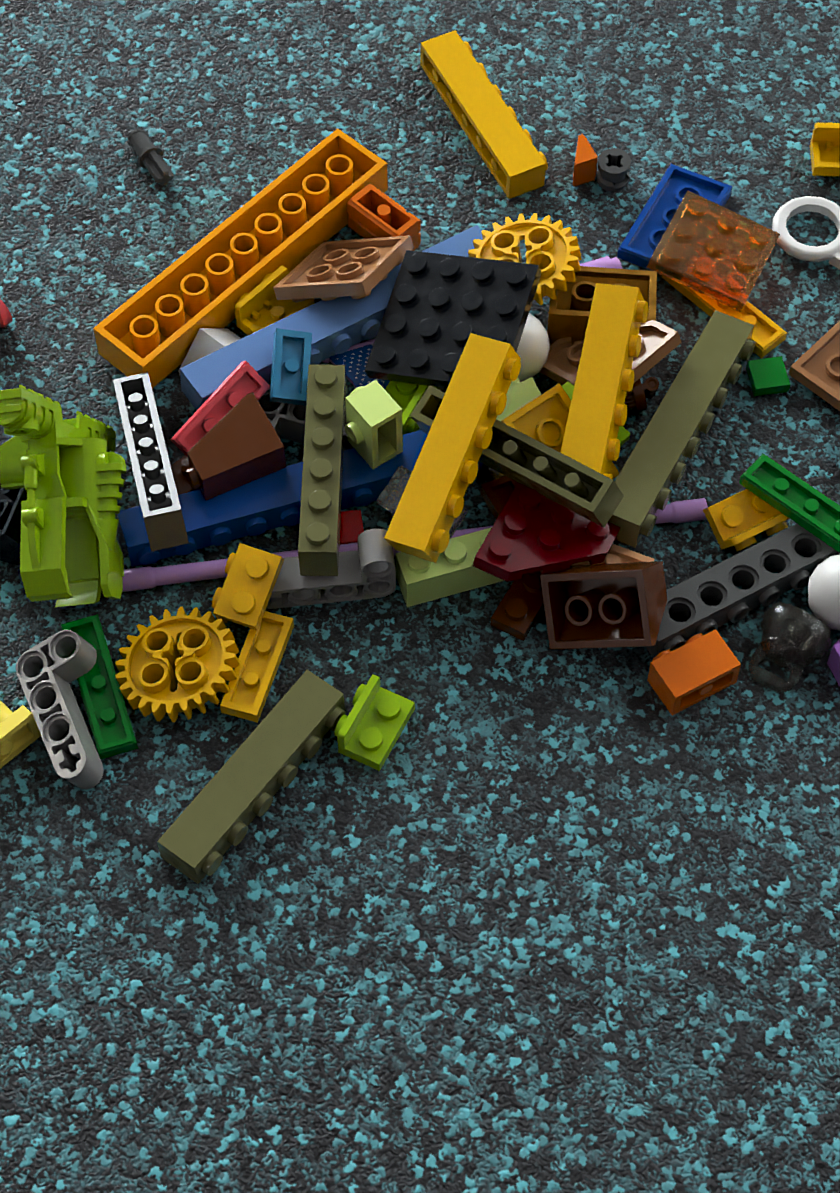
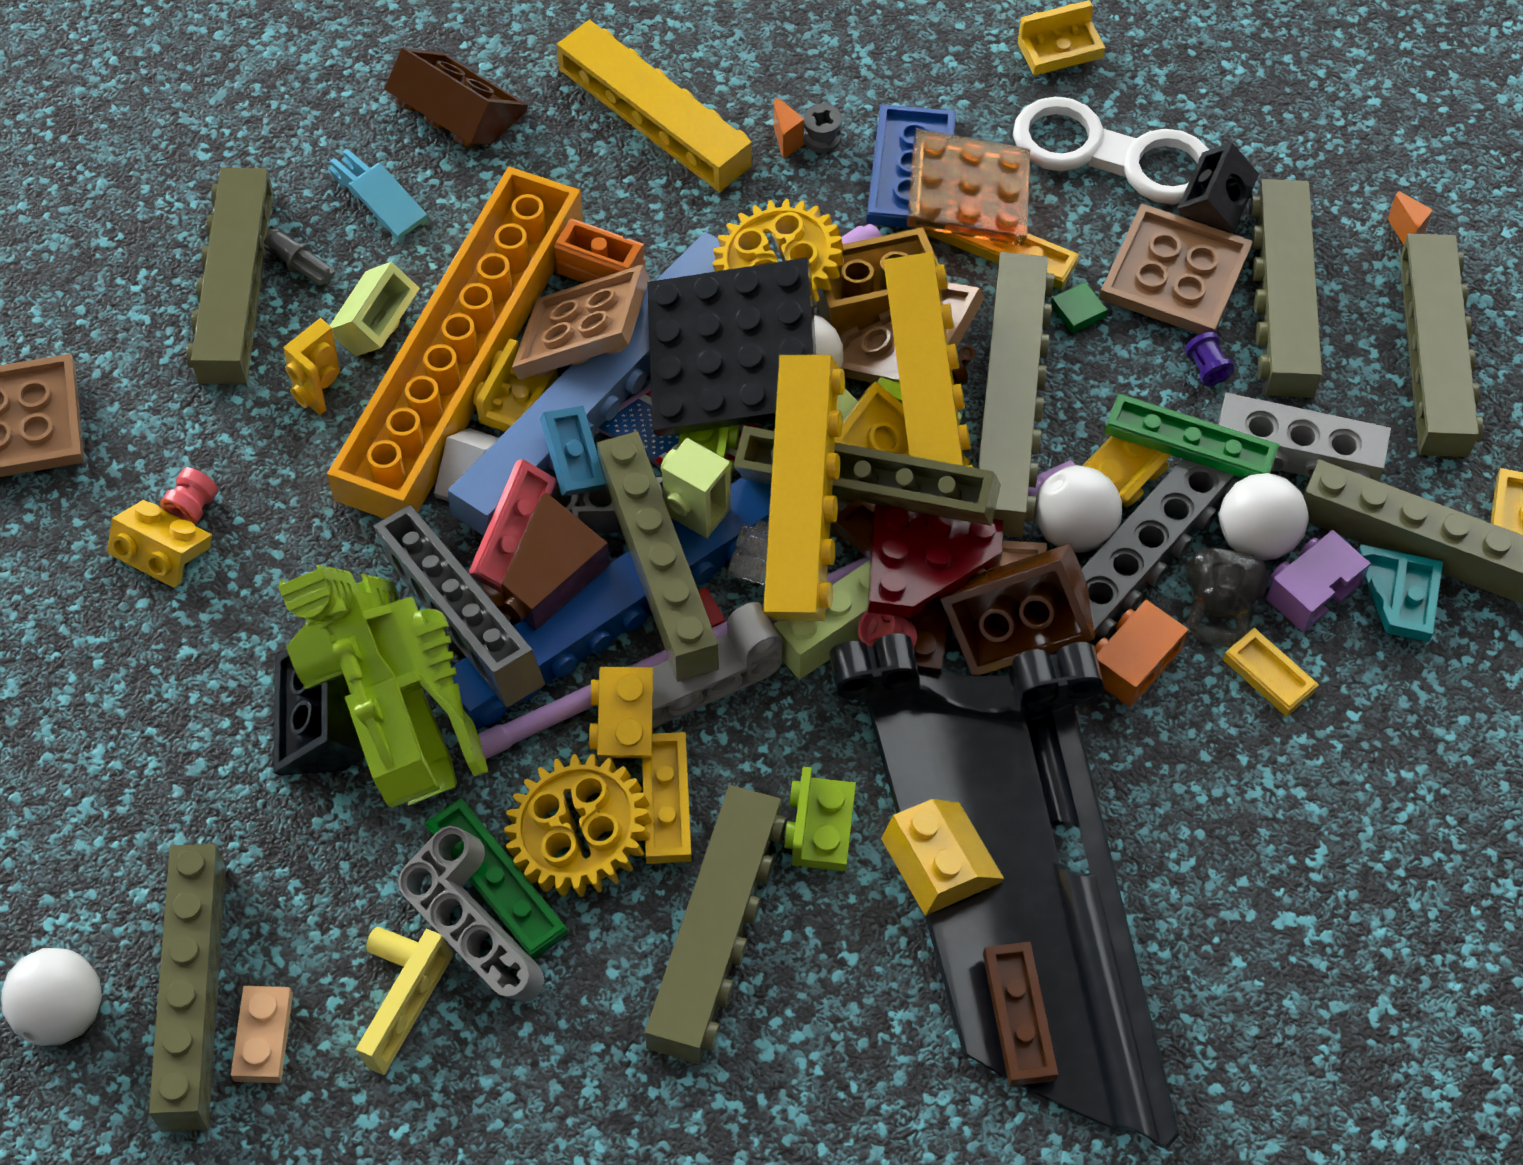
camera: 20 degrees left, 0 degrees up
(91, 157) = (231, 276): none -> olive brick
(120, 241) = (312, 365): none -> yellow bracket
(188, 212) = (373, 309): none -> yellowish green brick
(234, 126) = (380, 193): none -> medium azure arm
(323, 63) = (453, 96): none -> reddish brown slope
(457, 779) = (939, 854): none -> yellow slope
(467, 930) = (1020, 1014): none -> reddish brown plate
(490, 592) = (874, 626): none -> coral wheel
(496, 874) = (1014, 765): none -> black panel
(689, 537) = (1078, 508): none -> white piece
(803, 723) = (1270, 672): none -> yellow tile

